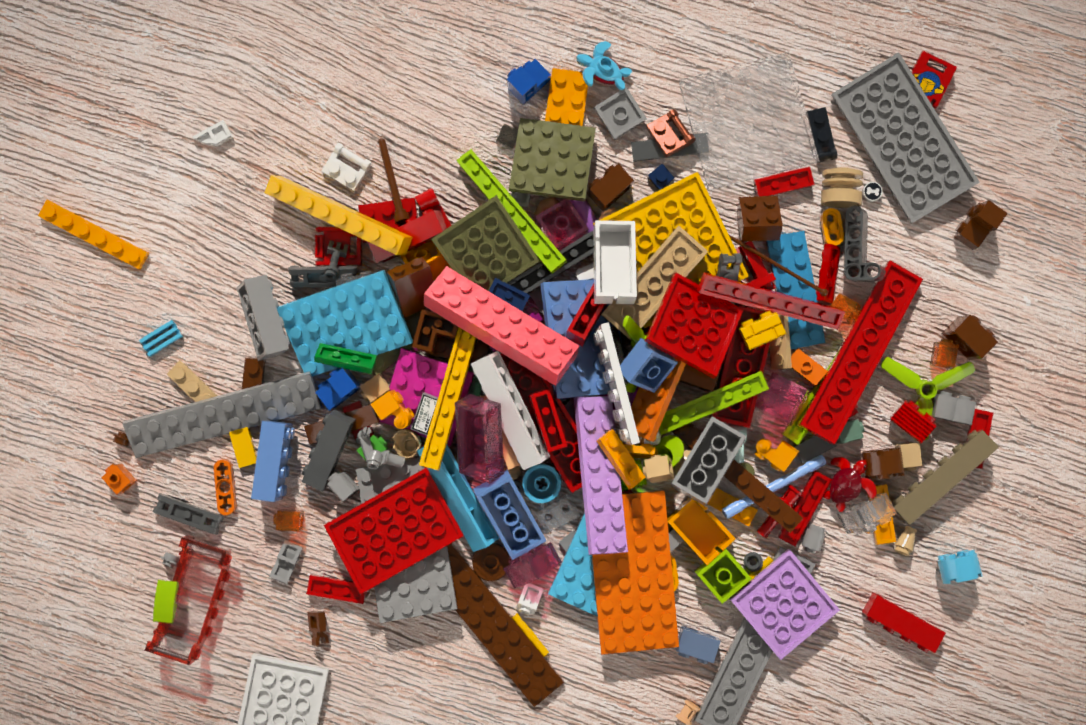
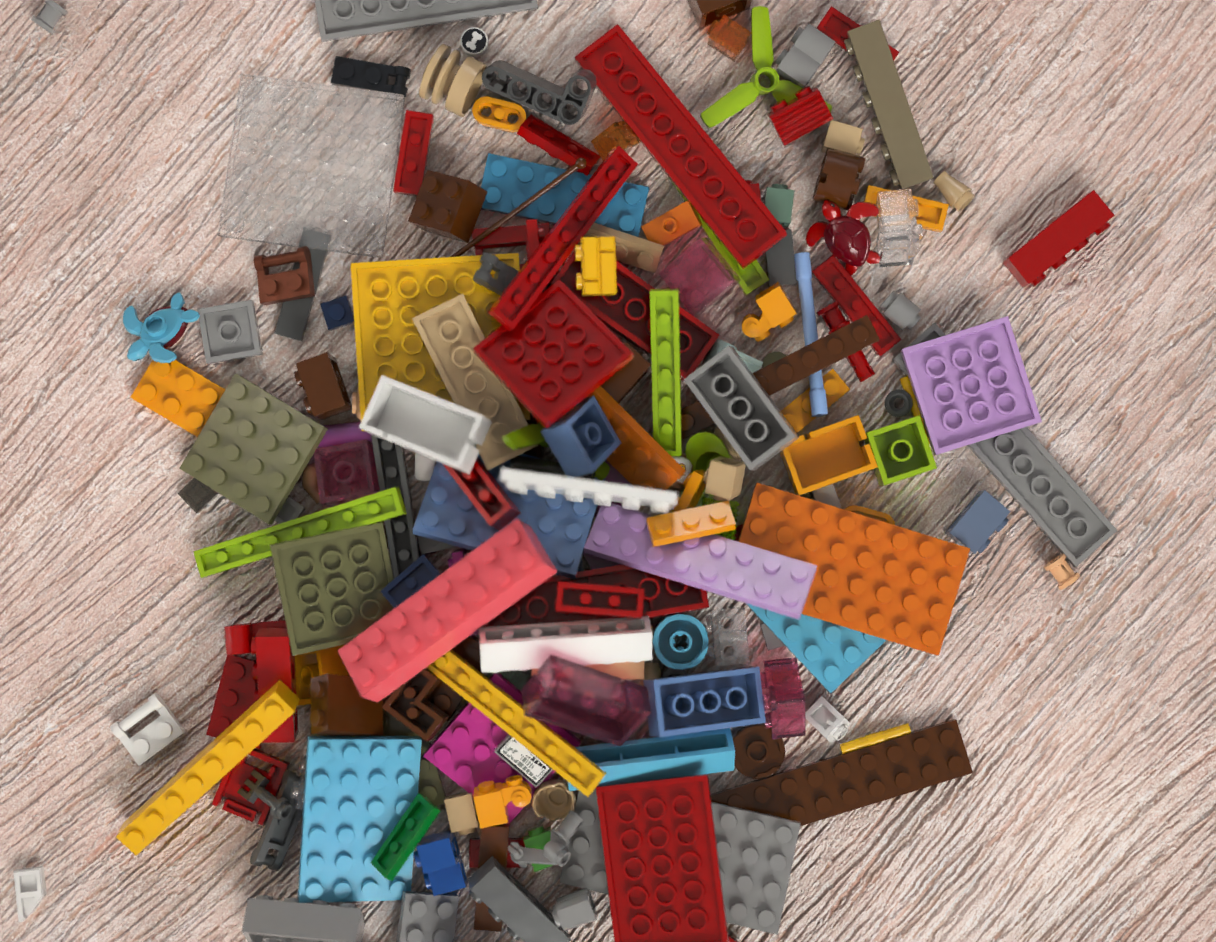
camera: 70 degrees left, 0 degrees up
(400, 213) = (242, 682): reddish brown piece -> none
(527, 80) = (133, 437): blue brick -> none
(960, 567) = (1016, 135): medium azure brick -> none

